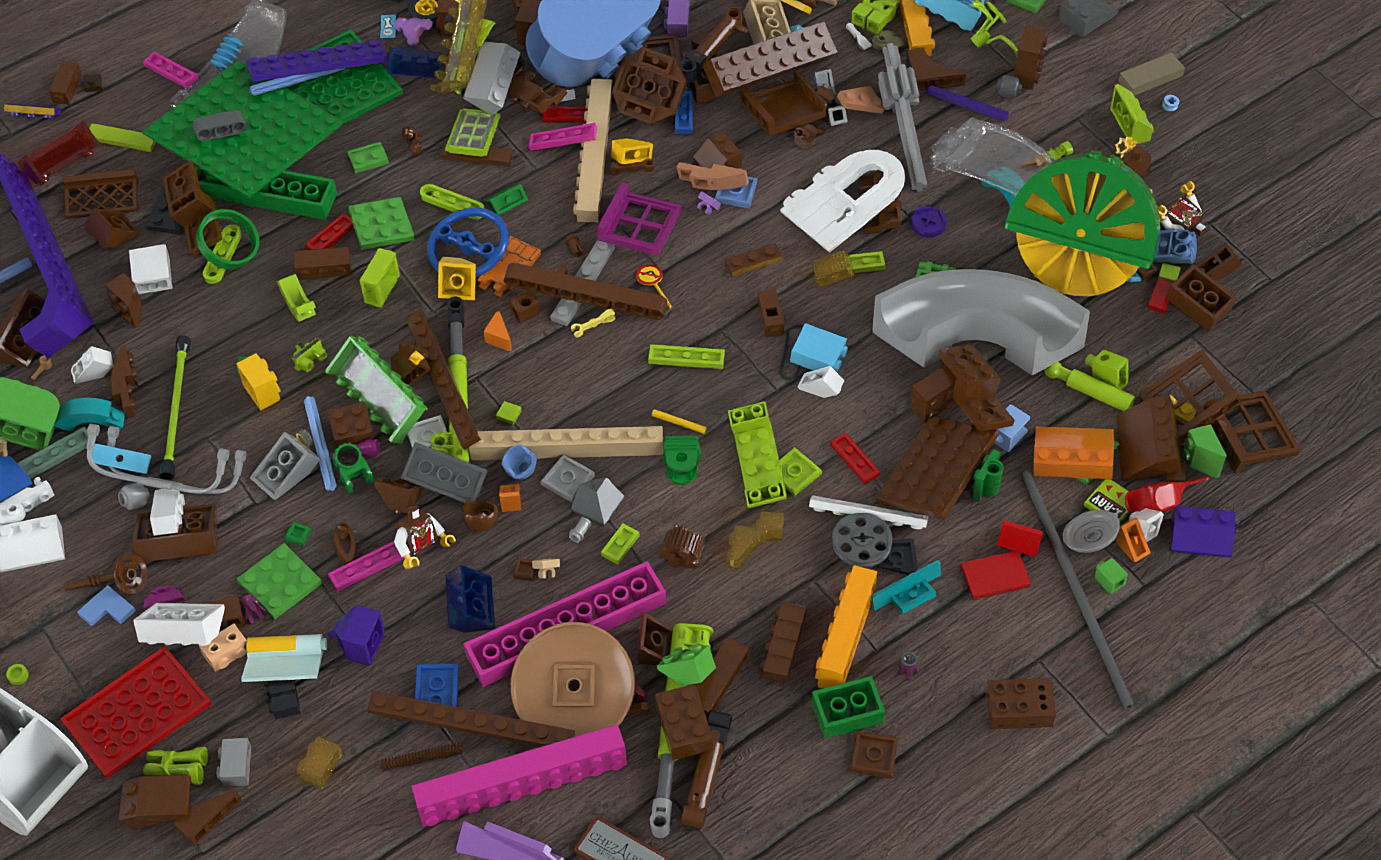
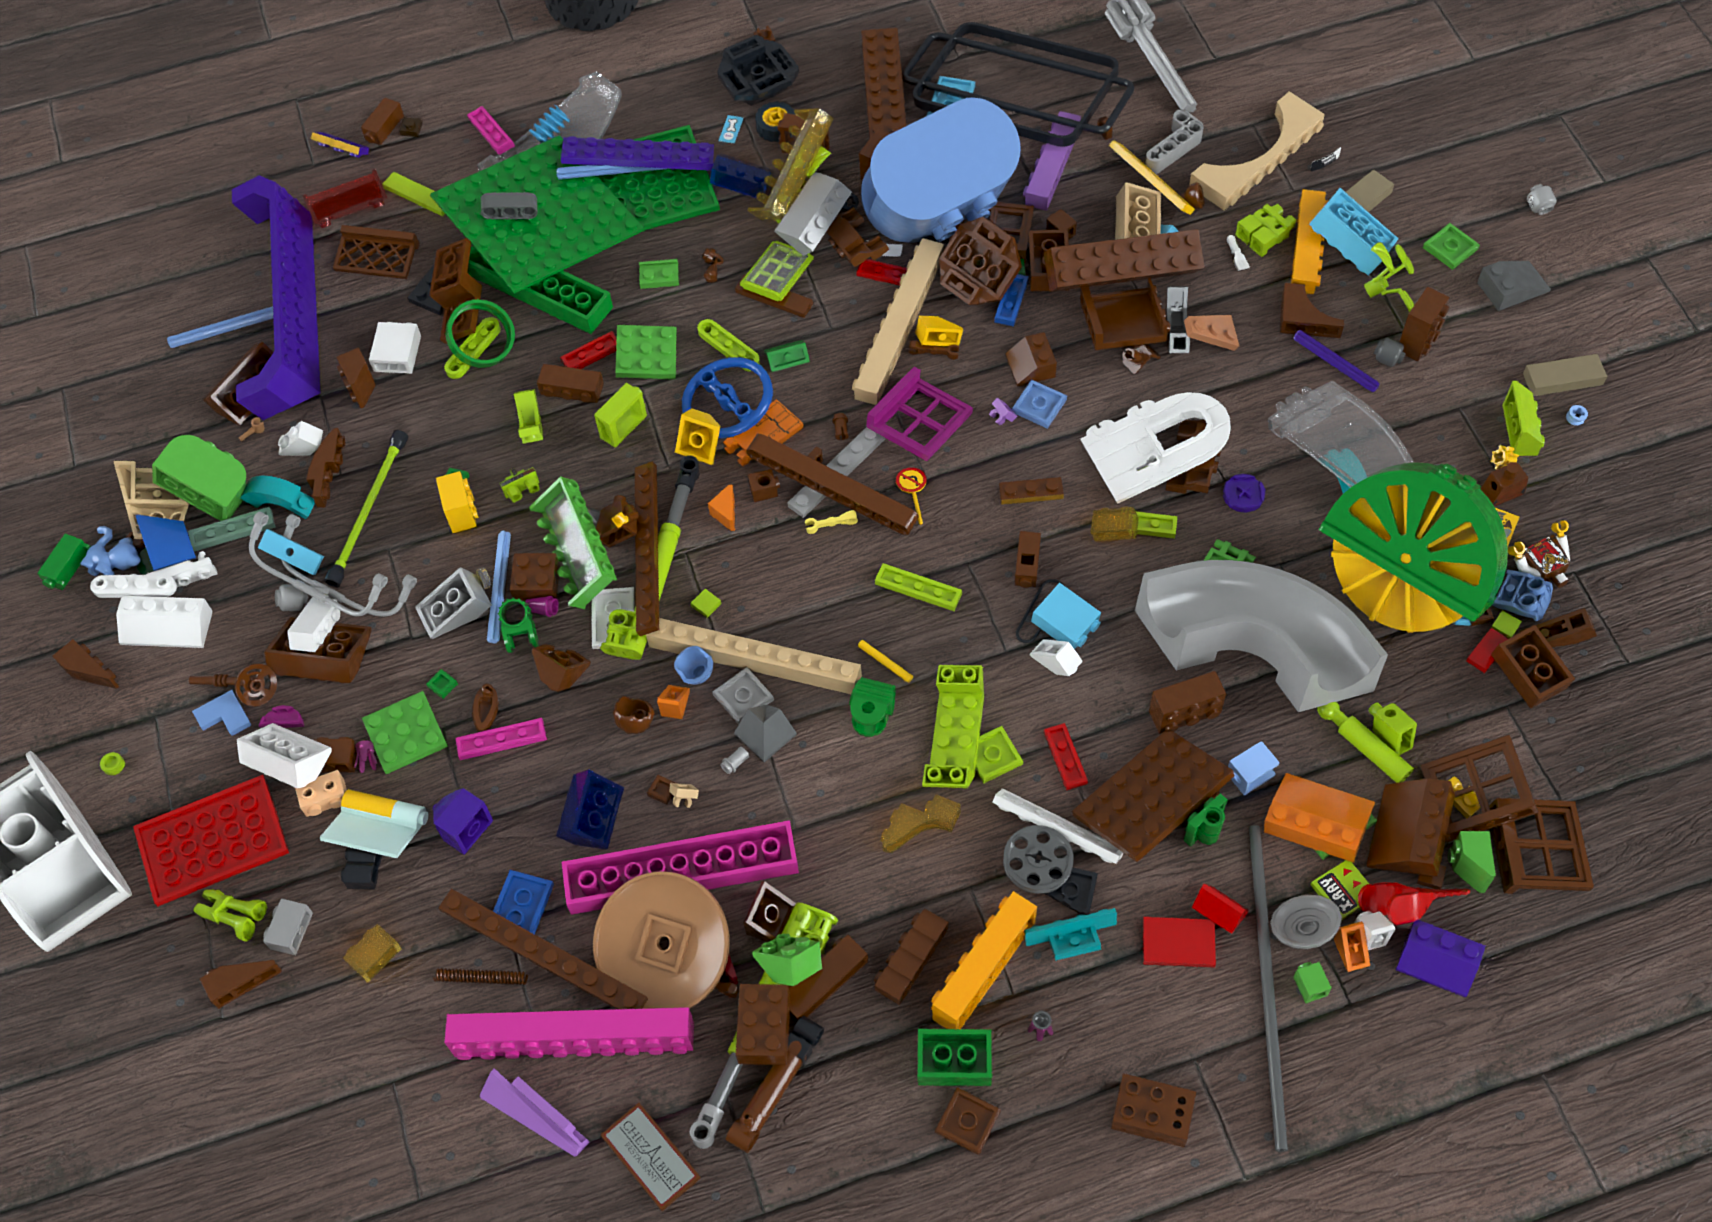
camera: 20 degrees right, 5 degrees up
(110, 228) = (371, 292): reddish brown slope -> none
(154, 800) = (189, 947): reddish brown slope -> none
(412, 28) = (753, 138): medium lavender animal -> none
(416, 533) = (557, 719): torso -> none
(444, 473) = (610, 658): dark grey tile -> none
(563, 136) = (869, 298): dark pink tile -> none
(620, 544) = (772, 788): lime plate -> none
(682, 547) = (835, 813): reddish brown brick -> none
(697, 58) = (1040, 242): reddish brown piece -> none
(716, 178) = (1019, 385): nougat slope -> none
(826, 94) = (1174, 315): reddish brown tile -> none
(885, 38) = (1268, 267): olive plate -> none
(898, 92) = (1258, 332): light grey axle -> none
(976, 387) = (1225, 713): reddish brown bracket -> none
(1039, 160) = (1390, 454): medium nougat hand -> none
(1064, 149) = (1418, 446): lime piece -> none

